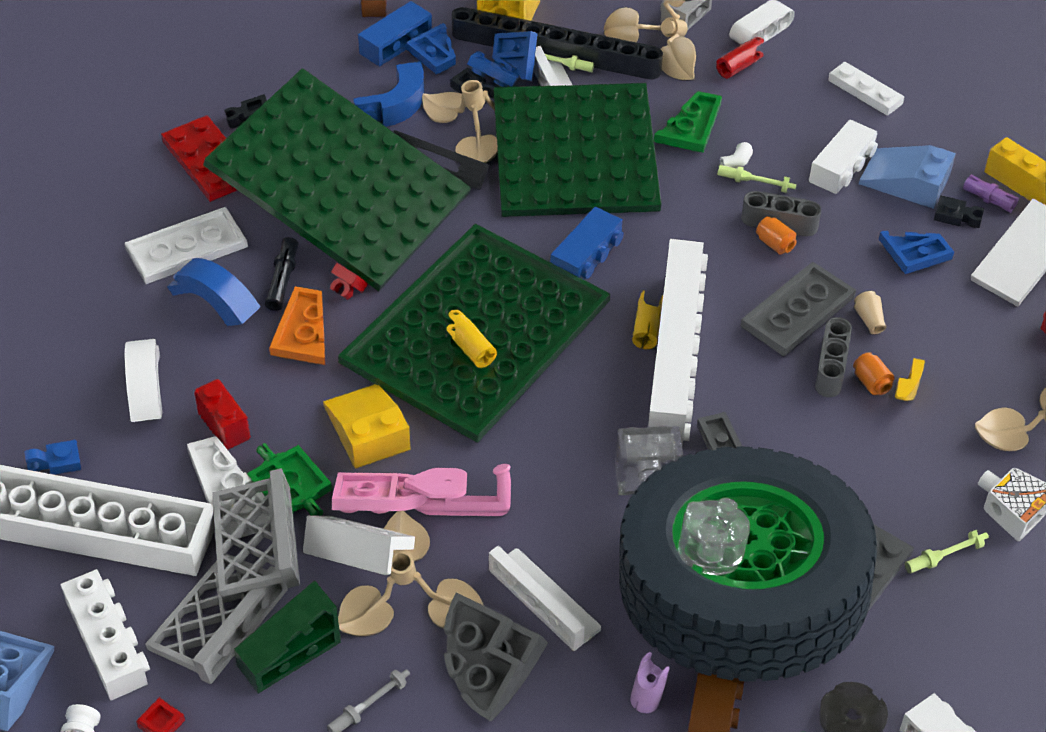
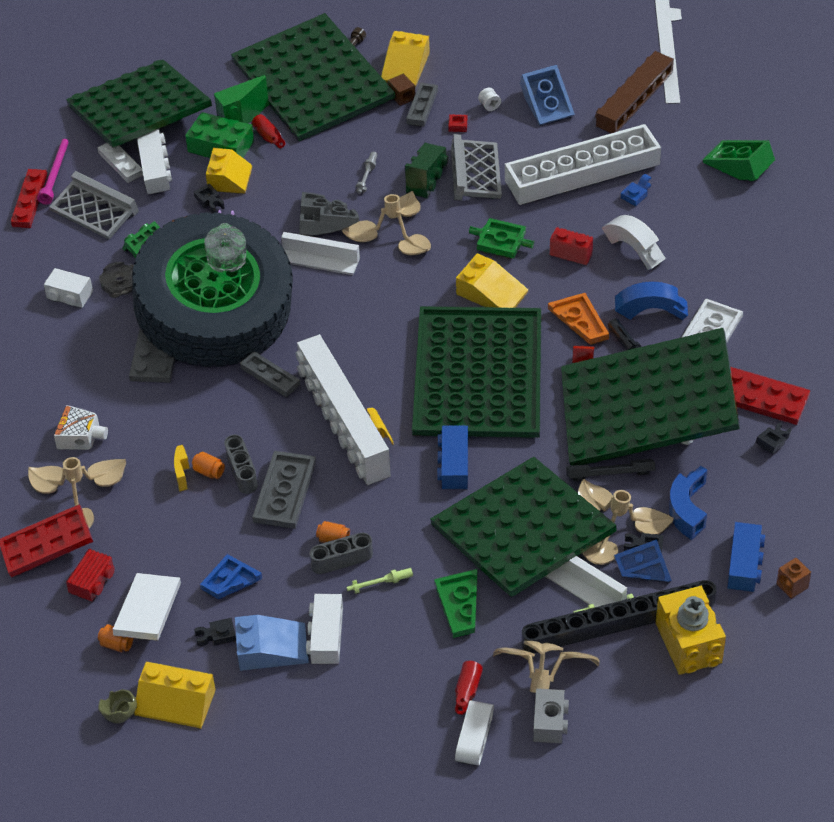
camera: 150 degrees right, 0 degrees up
(105, 635) = (518, 132): white brick -> none
(219, 471) = (522, 213): white wing -> none
(282, 535) = (478, 200): light grey fence -> none
(354, 543) = (431, 213): white panel -> none
(429, 492) = (434, 255): bright pink plate -> none
(433, 49) = (703, 561): blue wing -> none
(471, 340) = (468, 345): yellow piece -> none
(516, 52) = (631, 579): blue wing -> none
(642, 453) = (307, 324): clear brick -> none
(739, 158) = (404, 590): white arm -> none
(866, 88) = (350, 718): white plate -> none
(869, 308) = (235, 511): tan cone -> none
(931, 558) = (117, 376): yellowish green piece -> none
(990, 193) = (199, 661): medium lavender pin -> none

